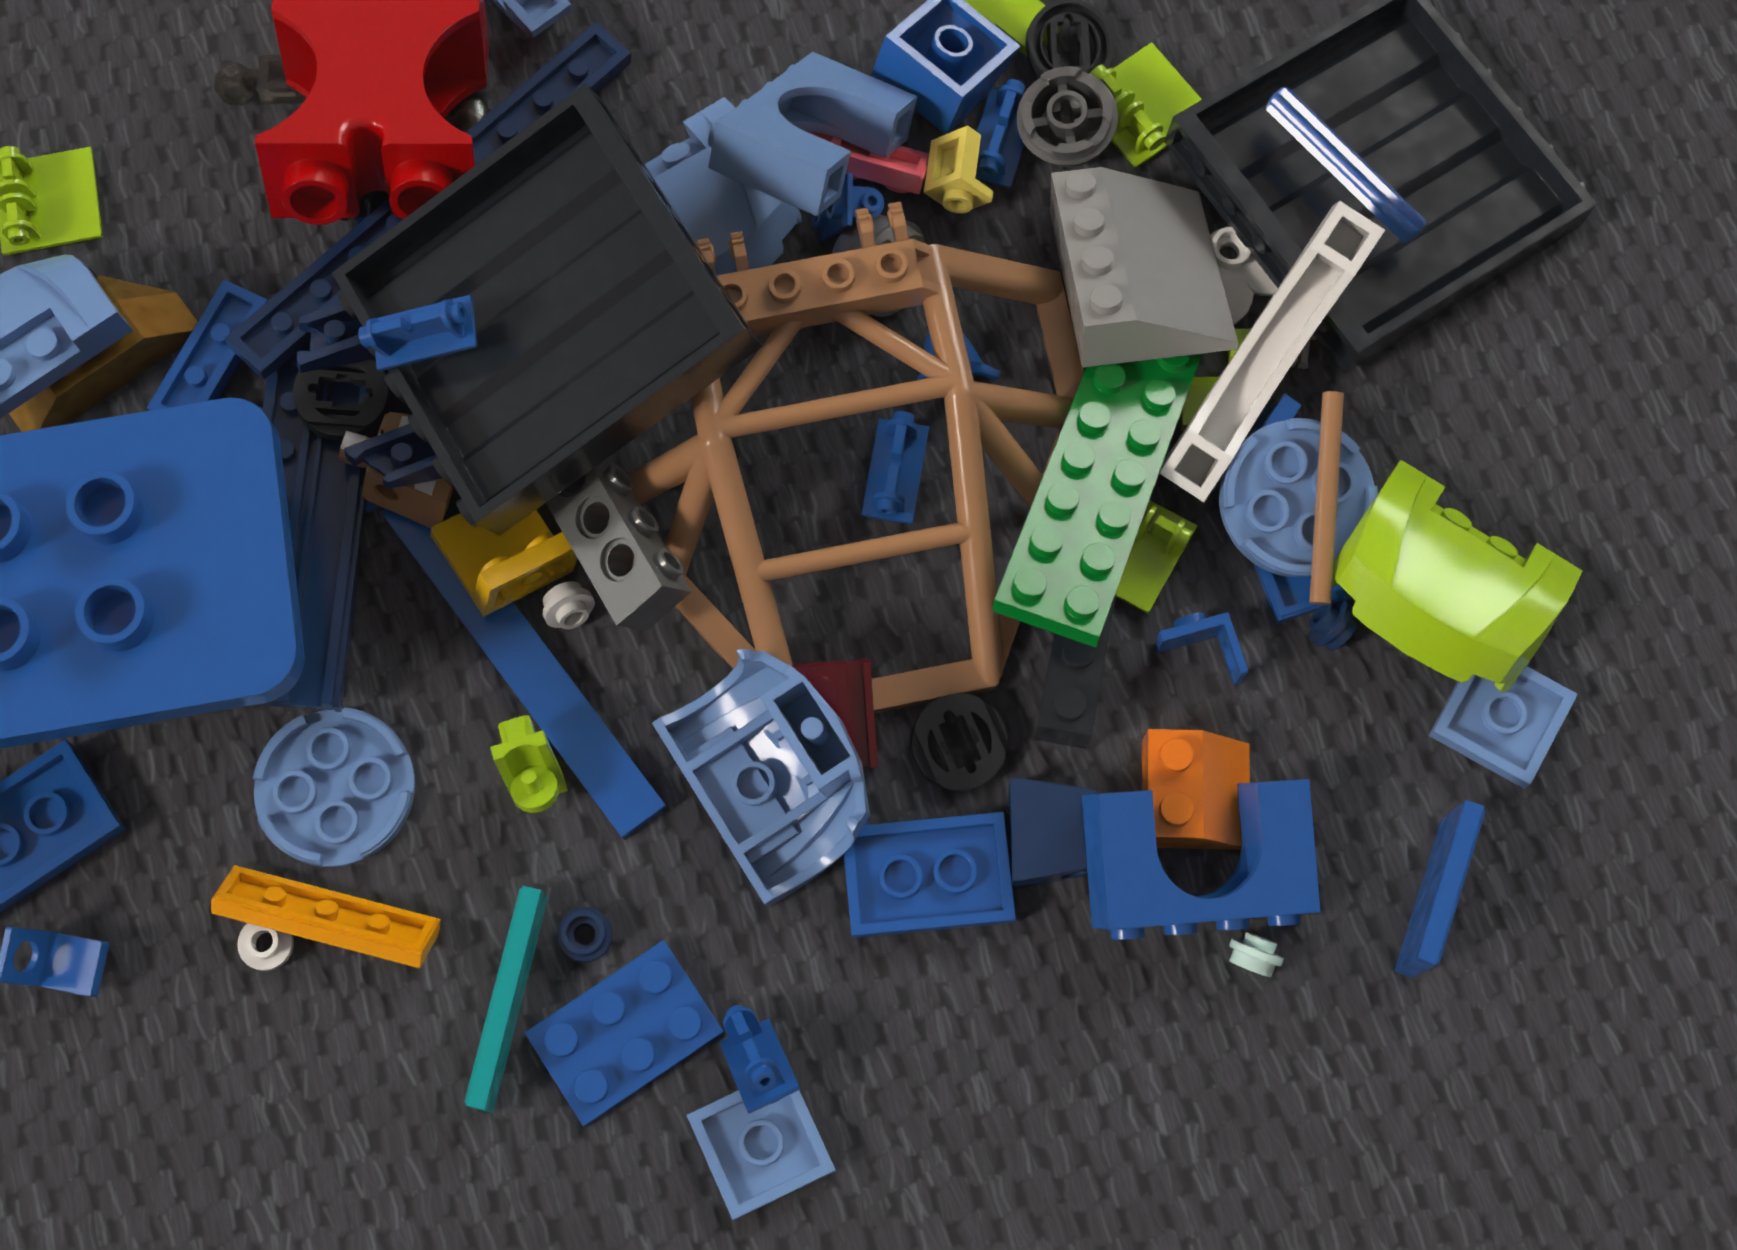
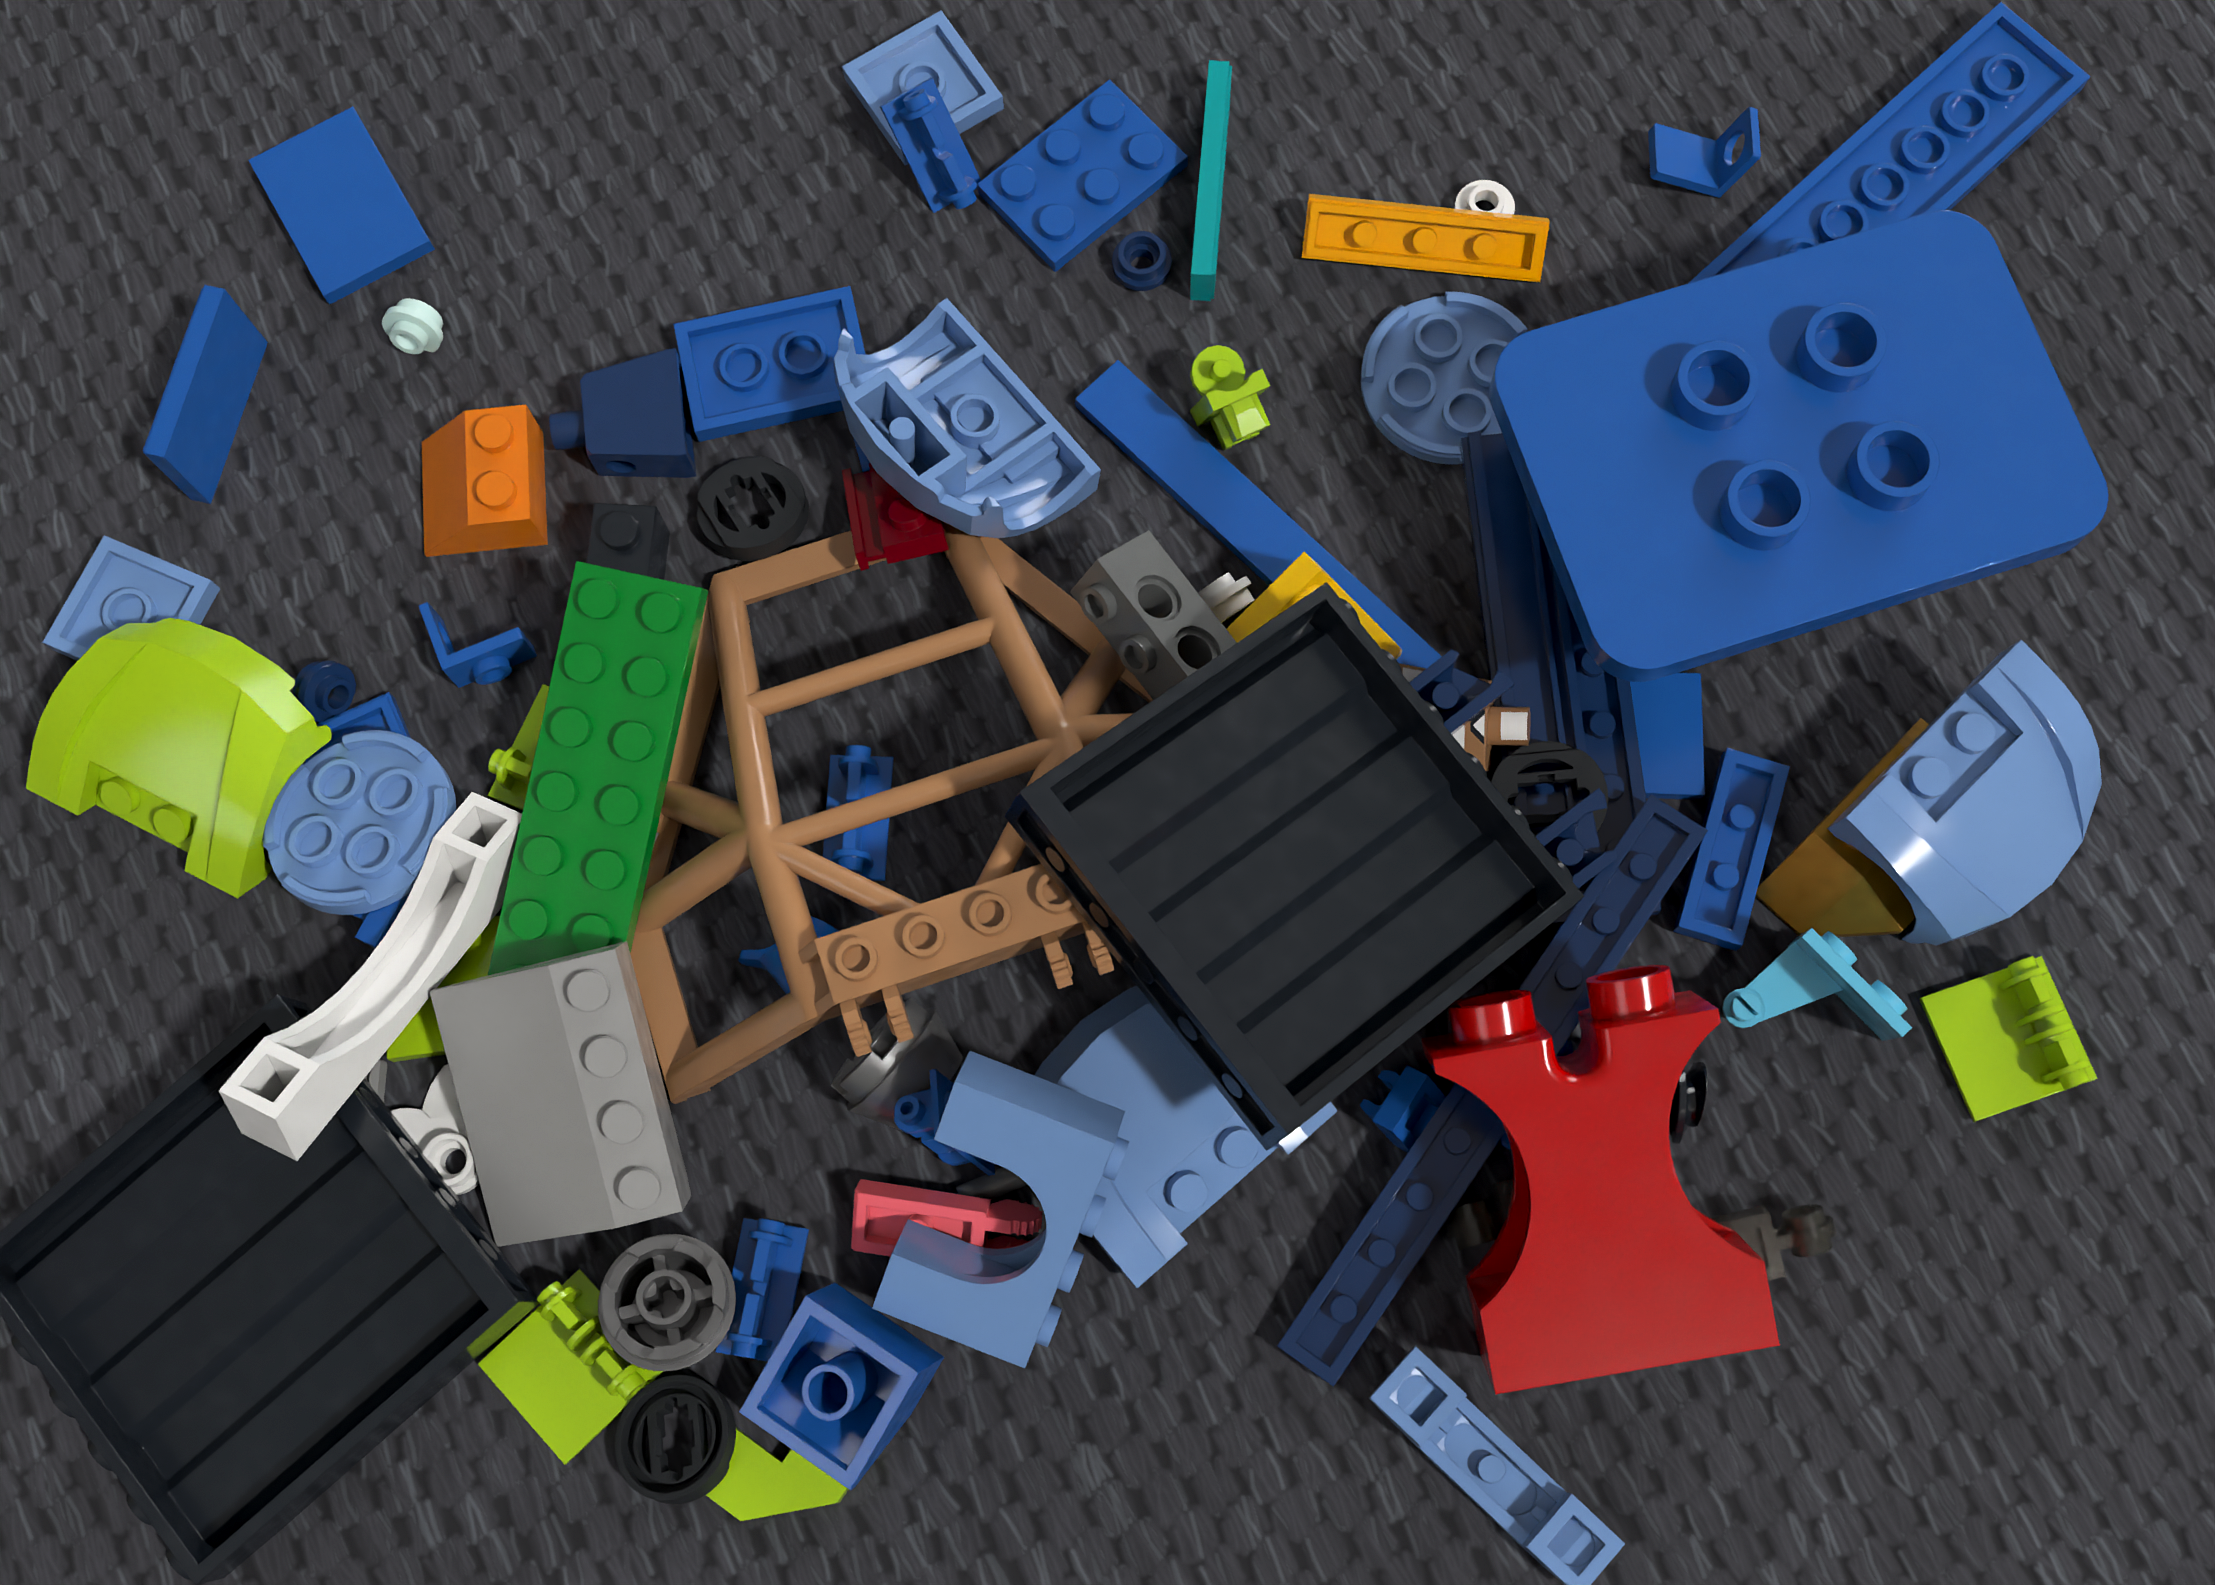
camera: 175 degrees right, 0 degrees up
(183, 243) = (1810, 971): none -> medium azure plate
(421, 333) = (1444, 804): blue hinge -> none
(953, 172) = (815, 1215): light yellow bracket -> none
(1271, 879) = (398, 388): blue arch -> none
(1326, 498) = (321, 814): medium nougat bar -> none
(1326, 1102) = (341, 205): none -> blue tile
(1345, 165) = (289, 1260): axle -> none

